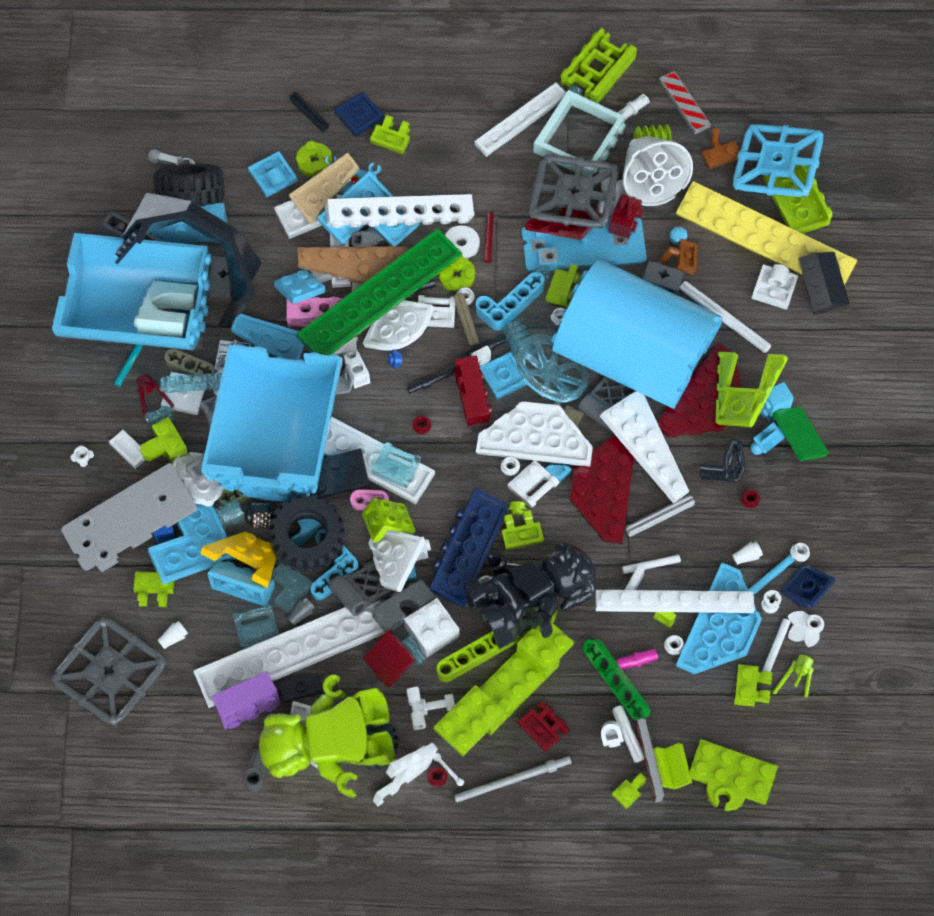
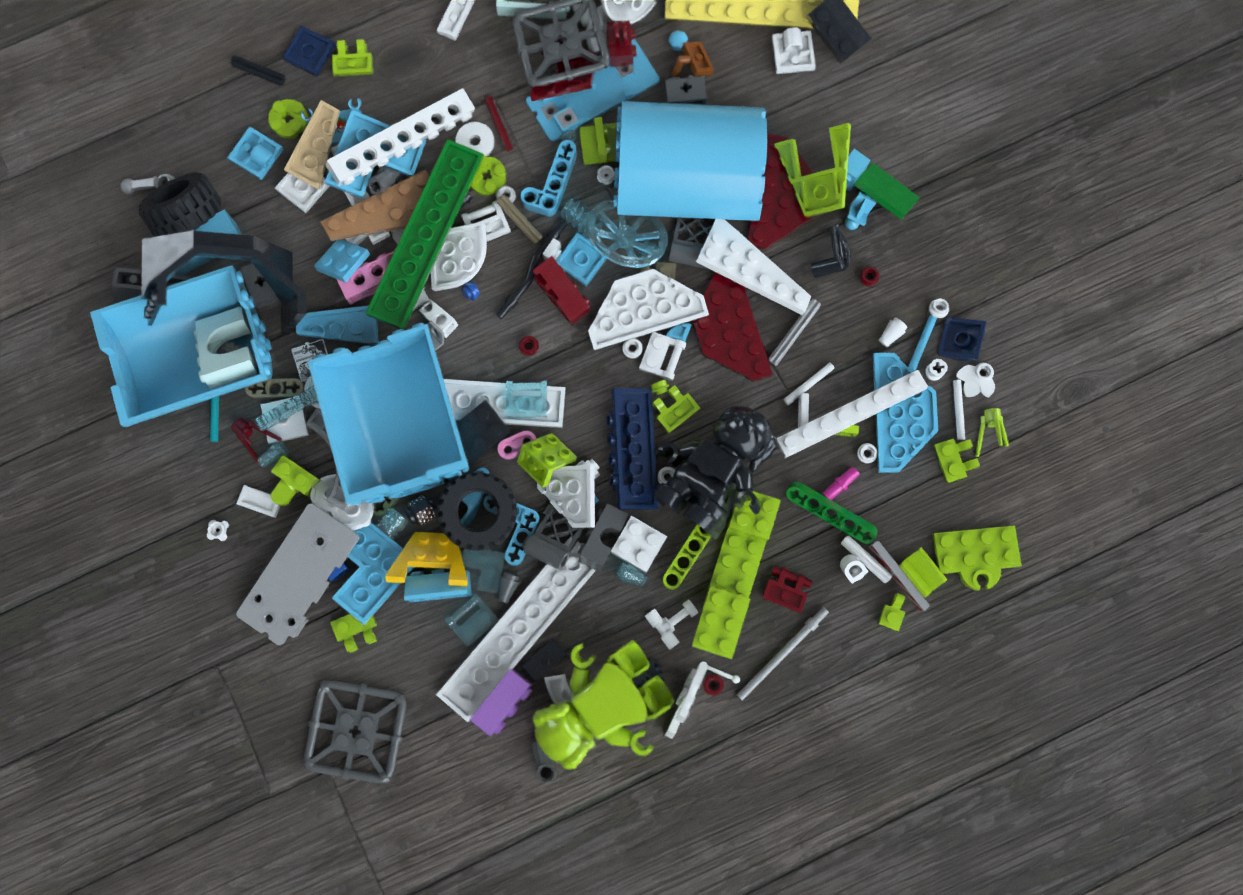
camera: 25 degrees left, 15 degrees up
(173, 634) = (399, 665): white cone -> none
(389, 658) = (615, 594): dark red tile -> none
(727, 318) = (752, 101): white axle -> none

